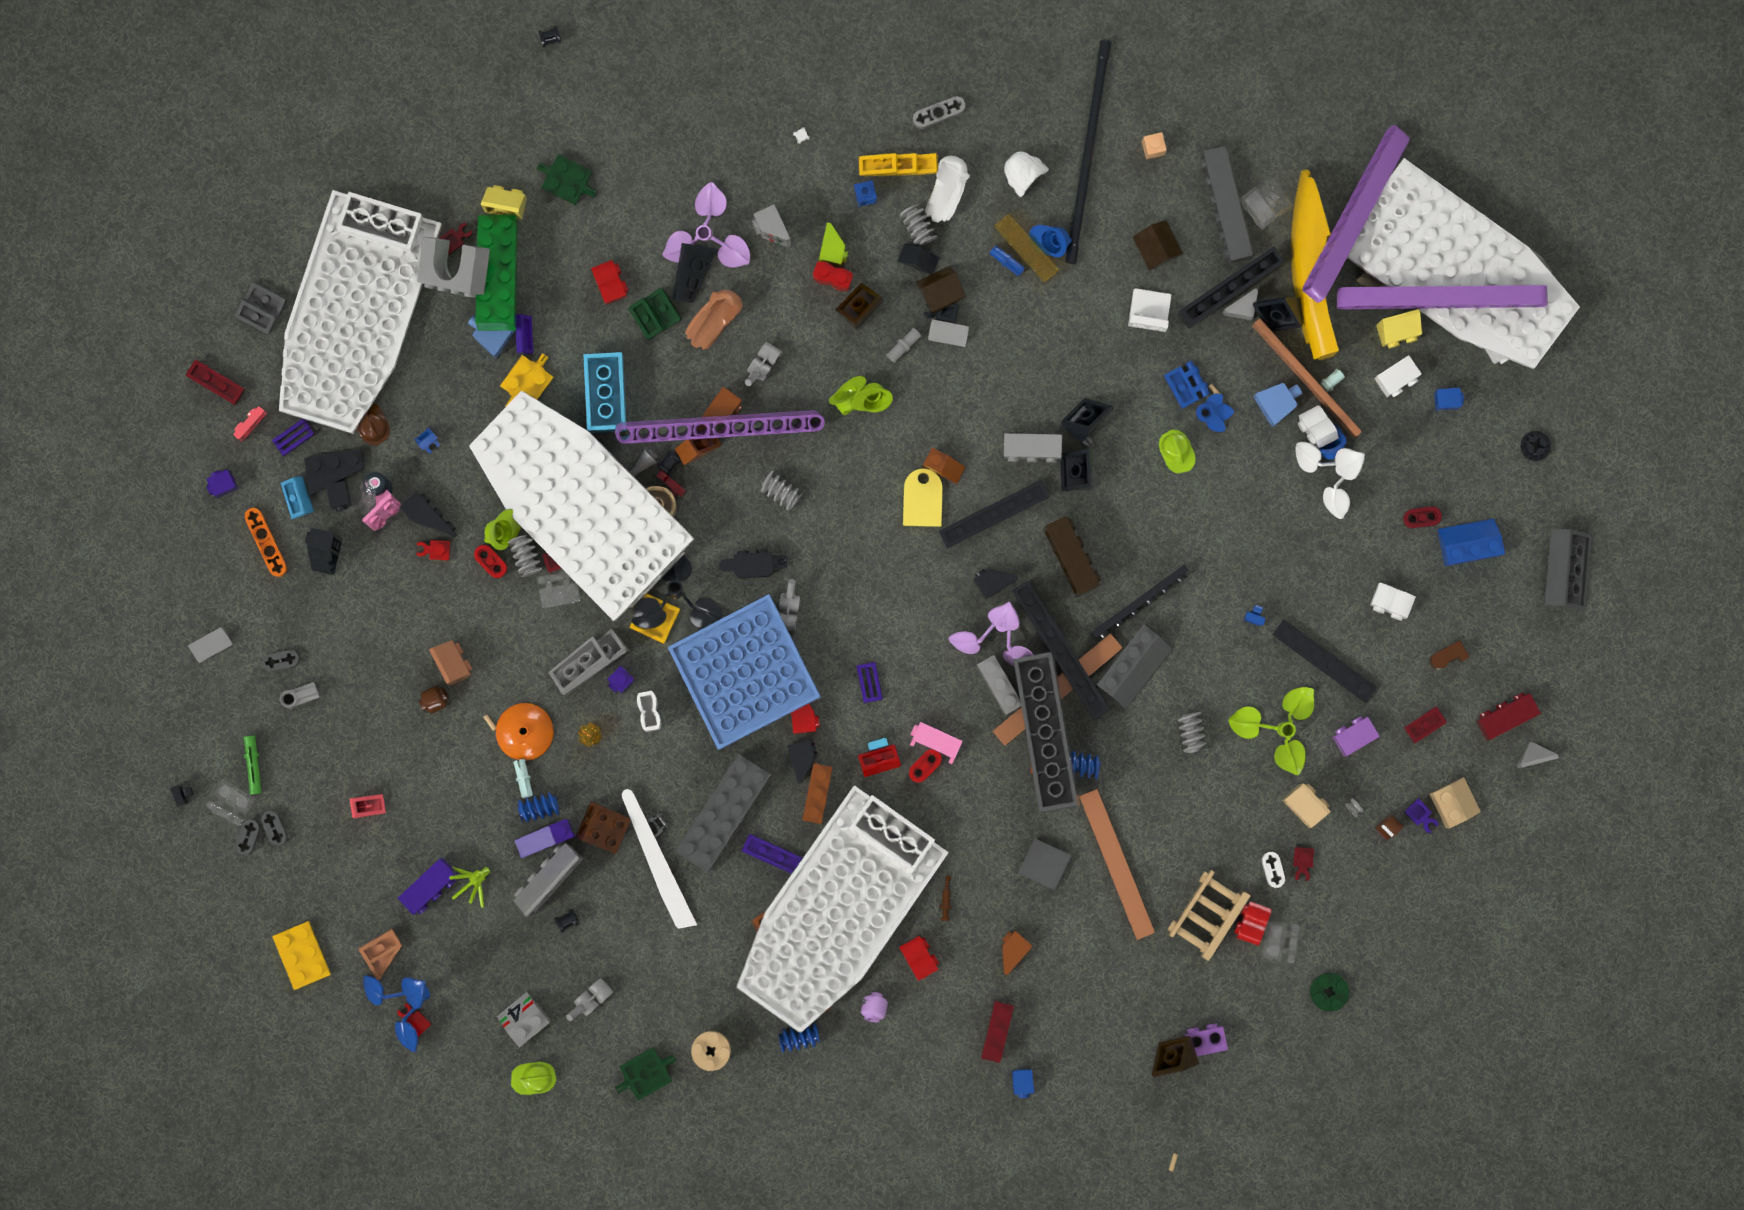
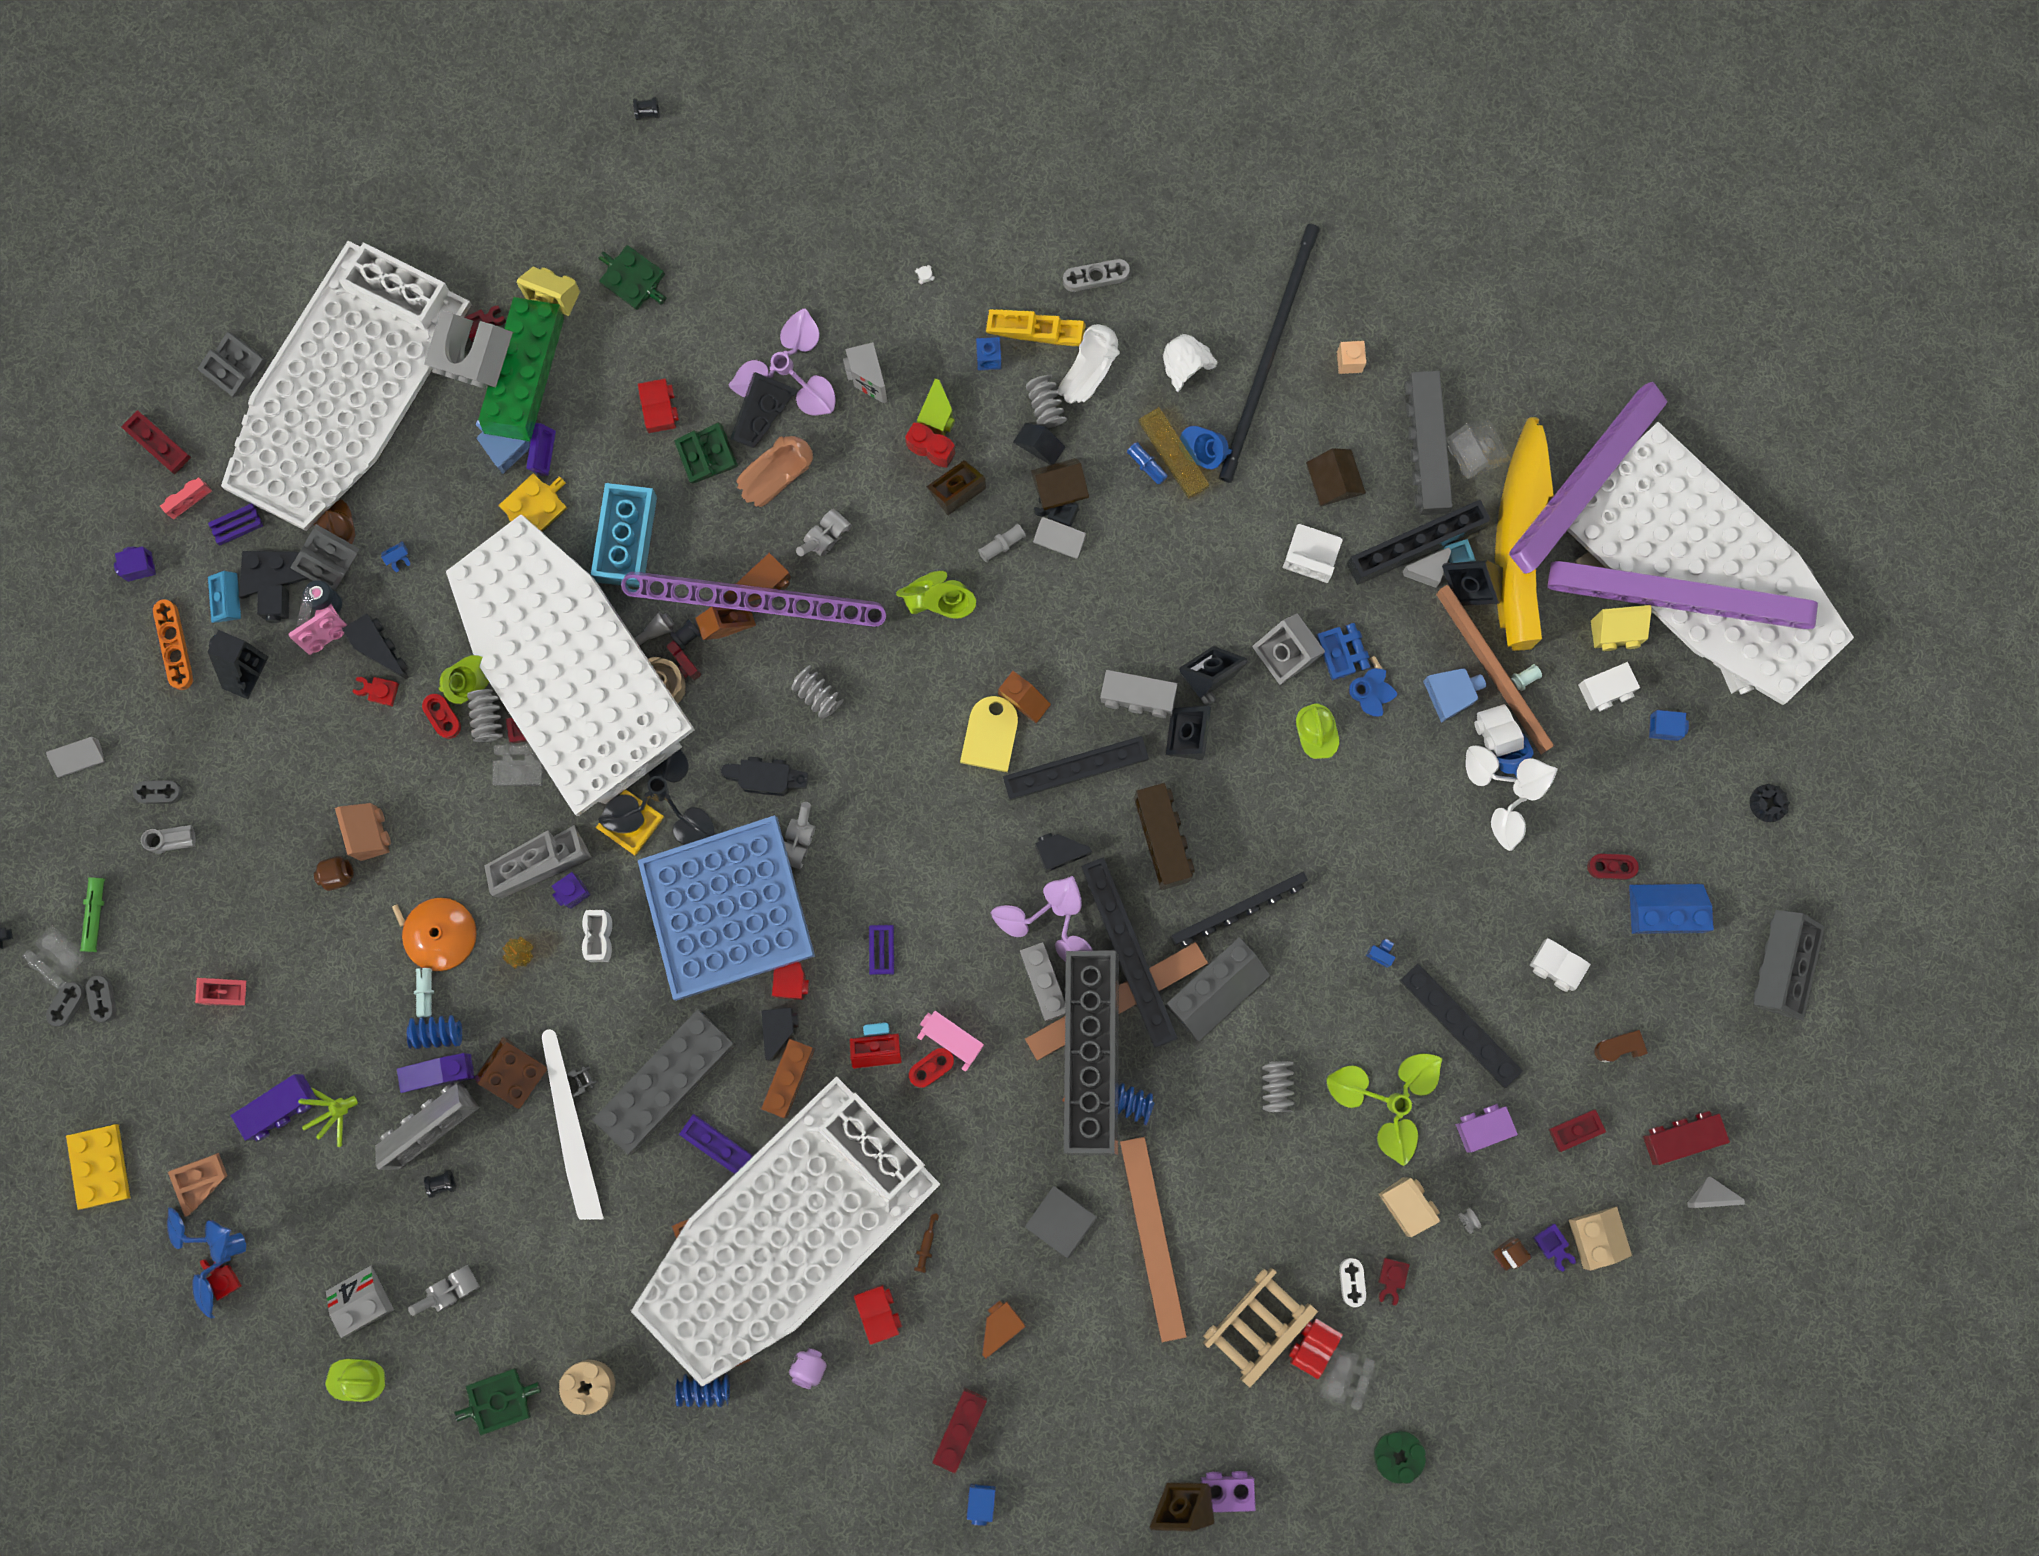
camera: 15 degrees right, 5 degrees down
(372, 452) = (324, 557): none -> dark grey slope
(1143, 390) = (1288, 648): none -> light grey slope
(1266, 289) = (1460, 552): none -> medium azure tile

